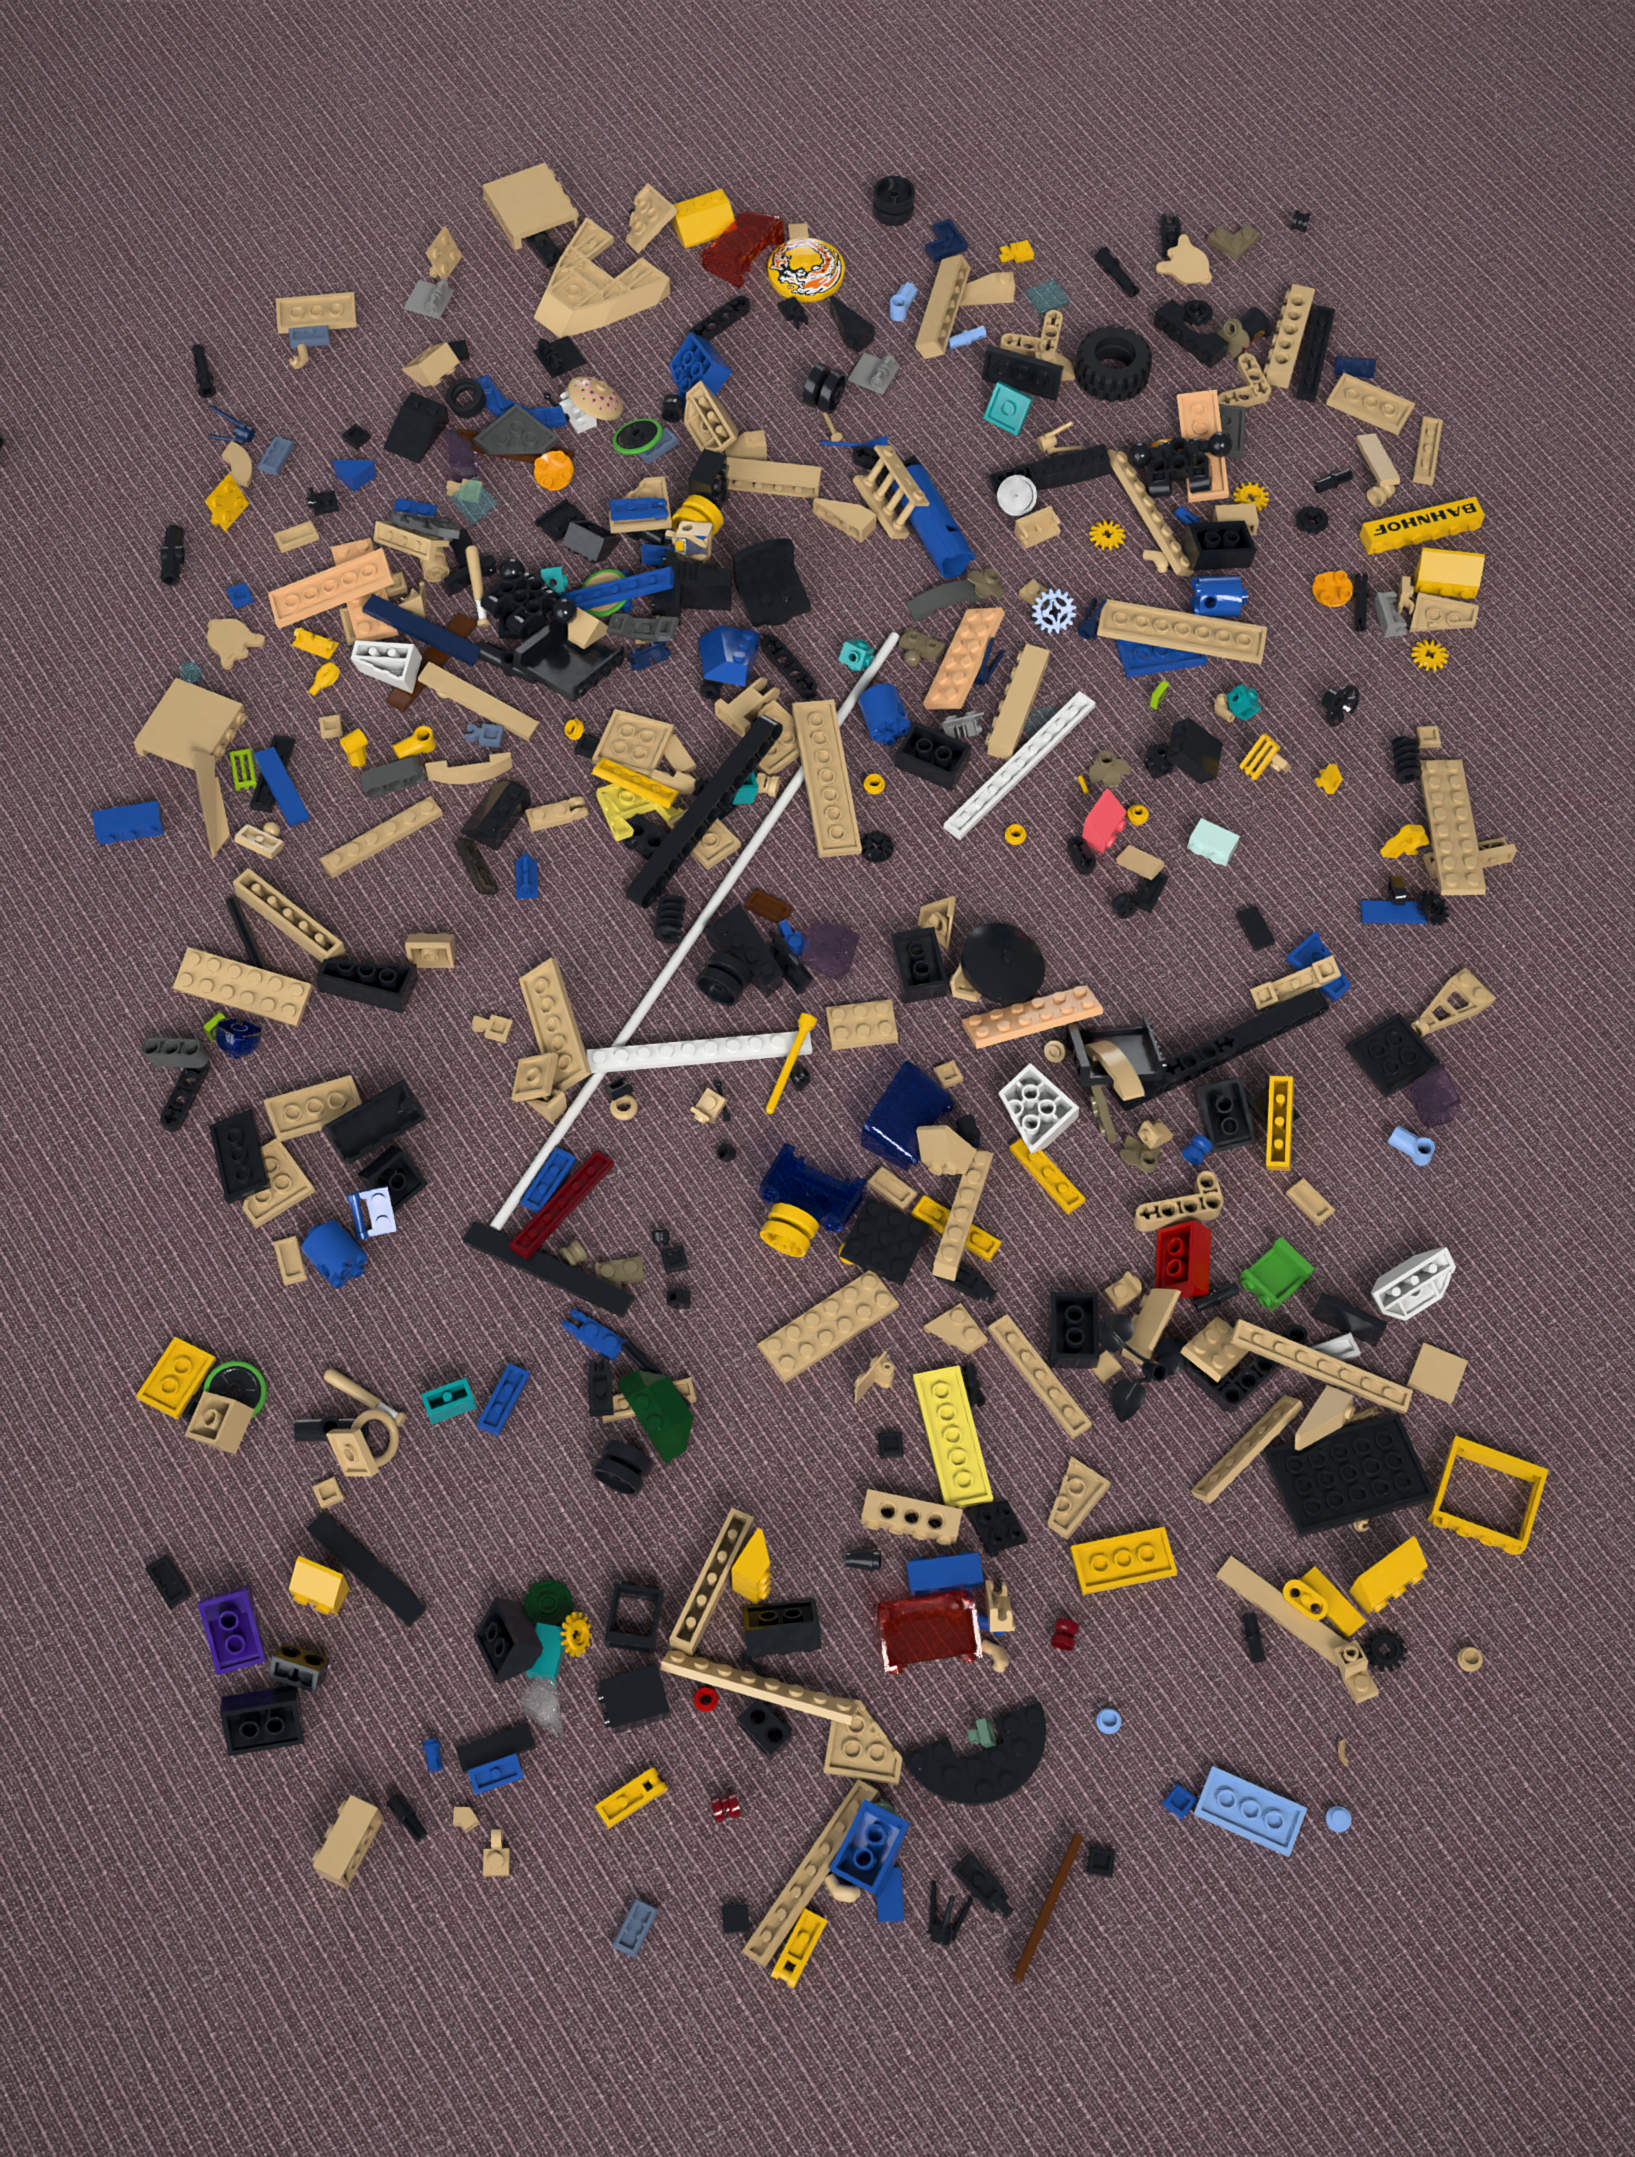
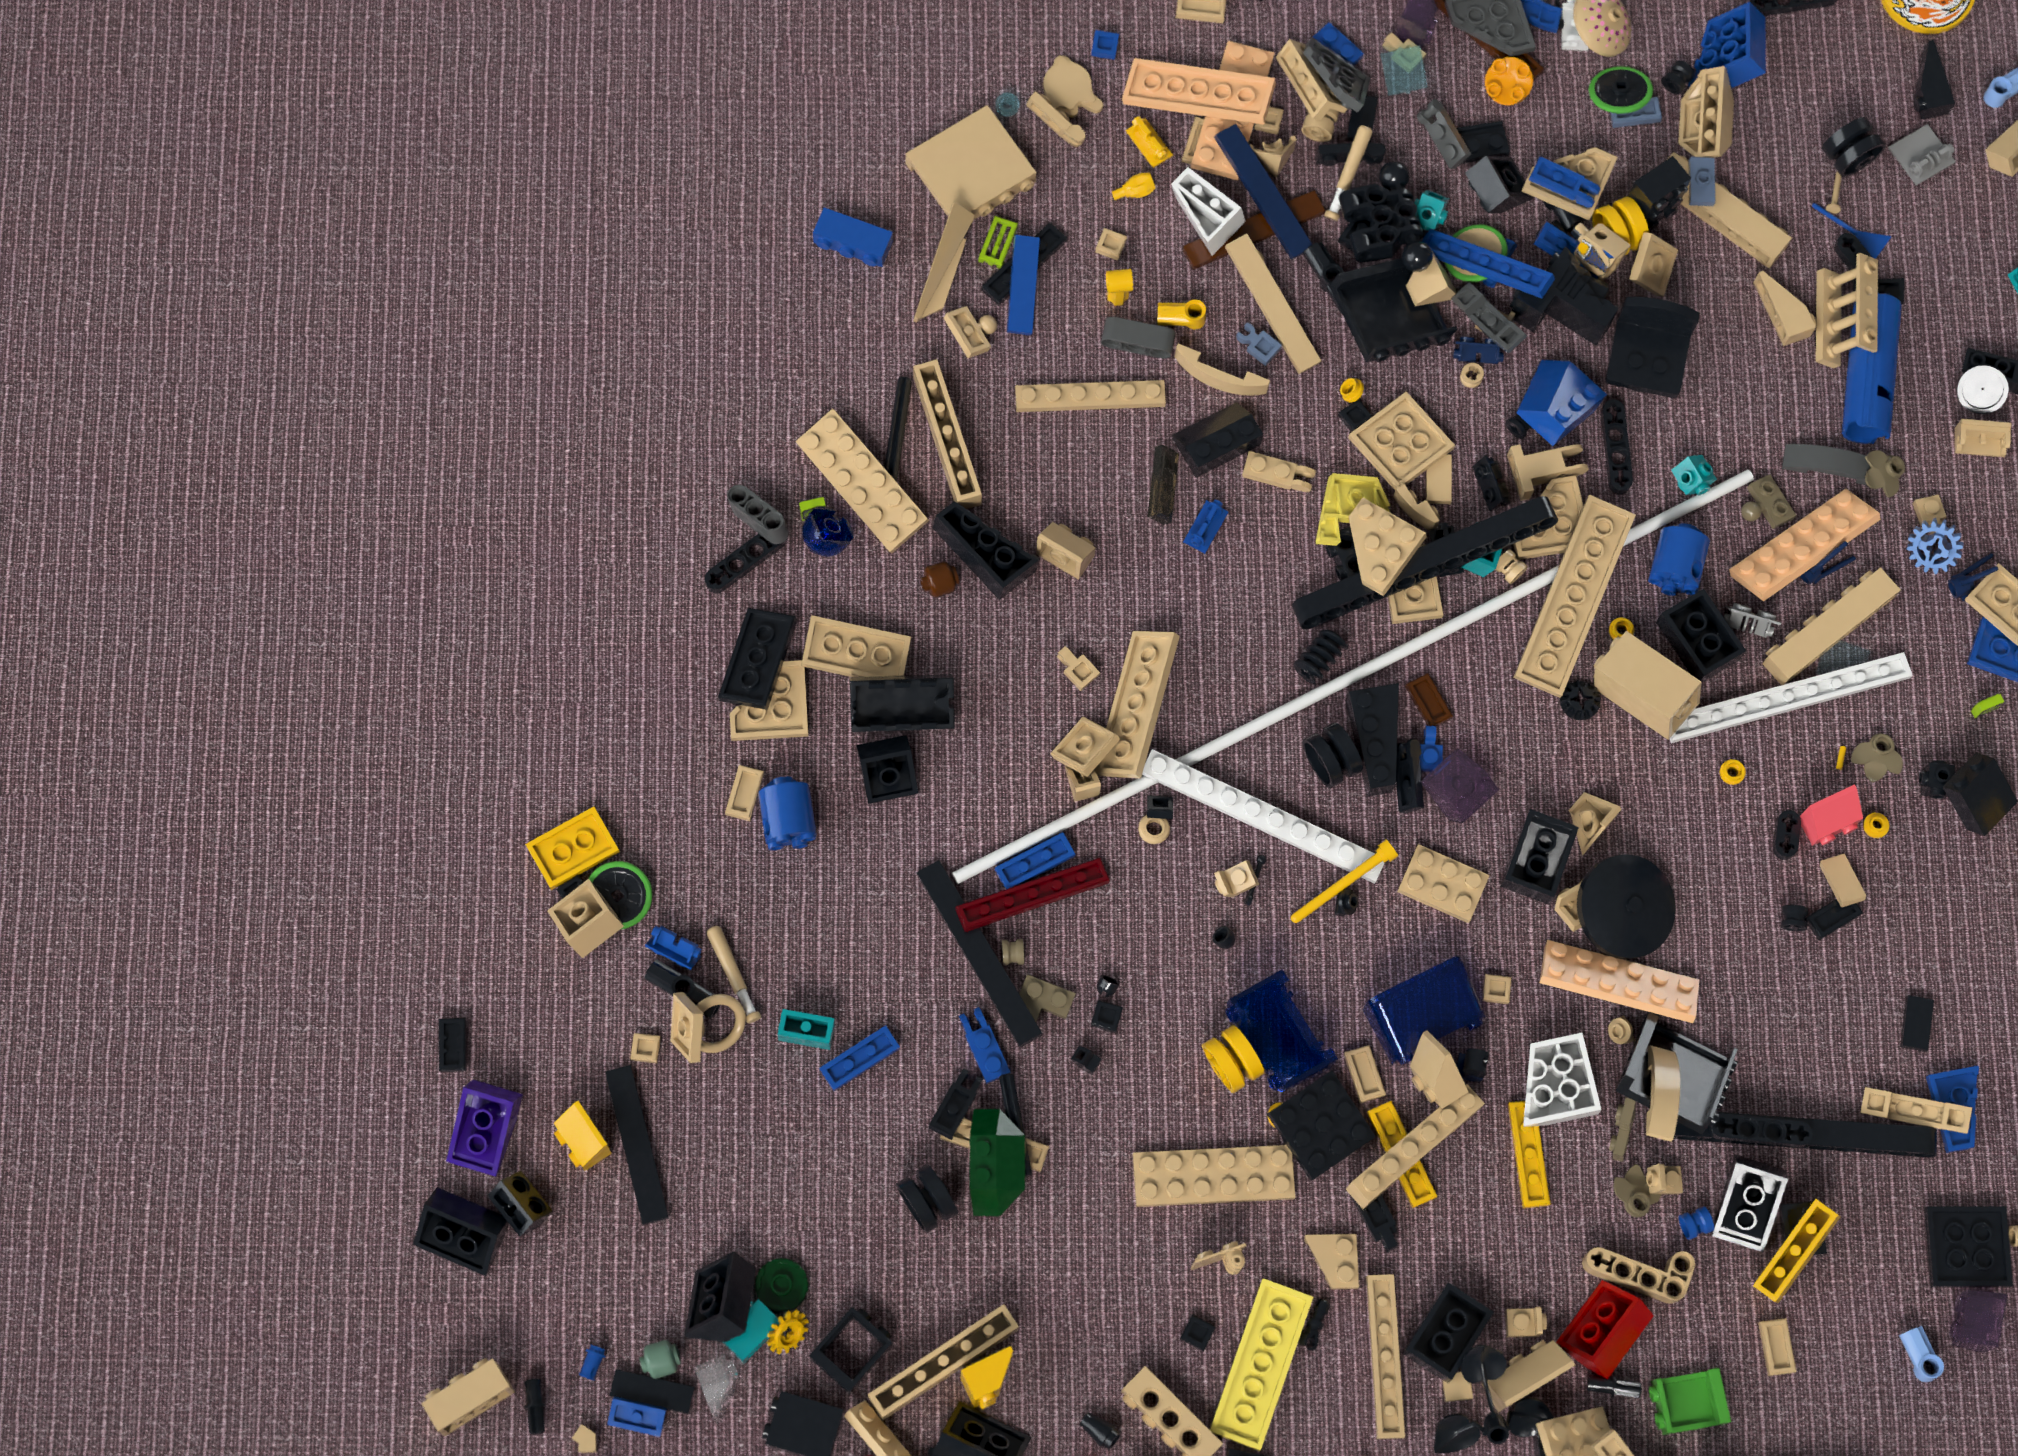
camera: 30 degrees right, 10 degrees up
(234, 662) = (1056, 119): none -> tan hinge
(316, 1403) = (683, 953): none -> blue hinge
(347, 1022) = (939, 579): none -> reddish brown head
(379, 1210) = (855, 795): plate -> none
(487, 1717) = (660, 1359): none -> sand green head
(530, 527) = (1444, 134): none -> dark grey plate
(635, 782) = (1373, 480): yellow tile -> none
(654, 680) = (1476, 368): none -> tan bush
(665, 814) = (1382, 544): none -> tan plate
(715, 738) = (1487, 474): none -> black hinge
(735, 530) = (1653, 264): none -> tan plate
(738, 466) = (1702, 181): none -> sand blue plate
(749, 446) = (1733, 170): tan slope -> none
(793, 310) = (1881, 30): black plate -> none
(917, 805) = (1646, 684): none -> tan brick
(1213, 842) = (1934, 904): light aqua brick -> none

